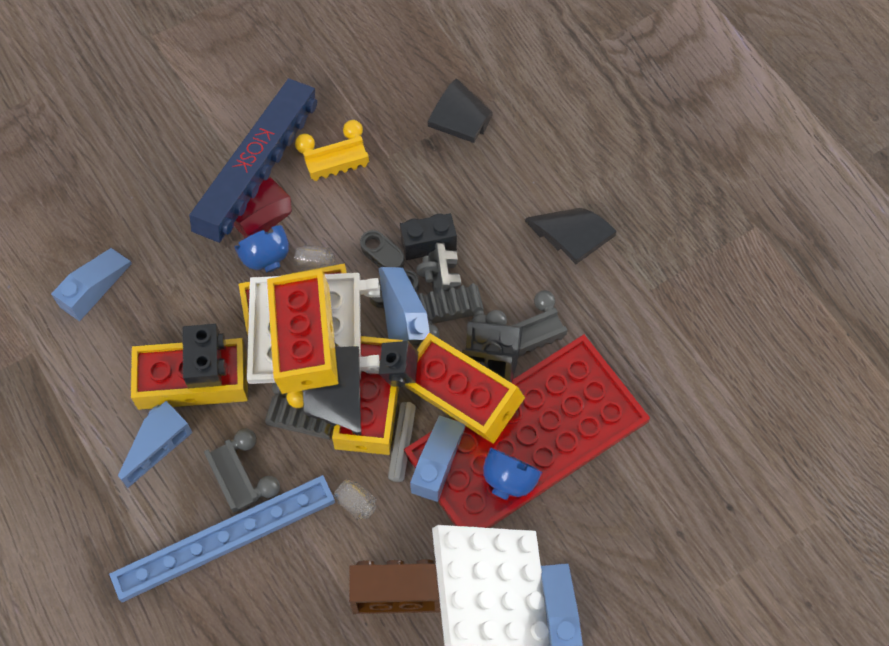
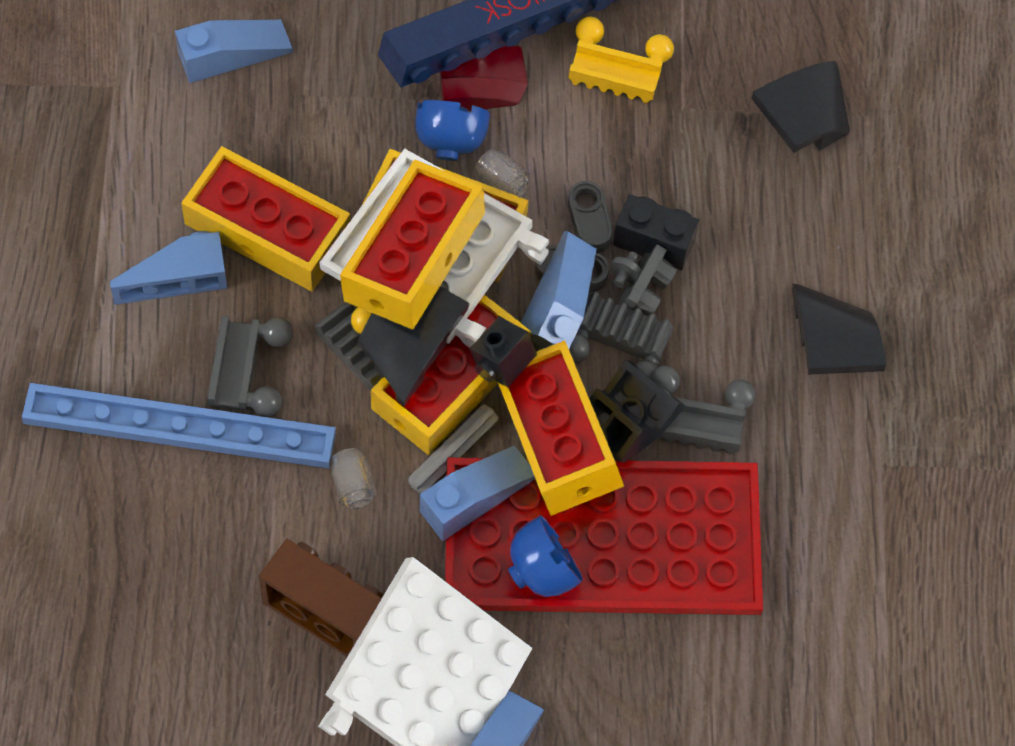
camera: 30 degrees right, 0 degrees up
(203, 356) = (289, 205): black brick -> none

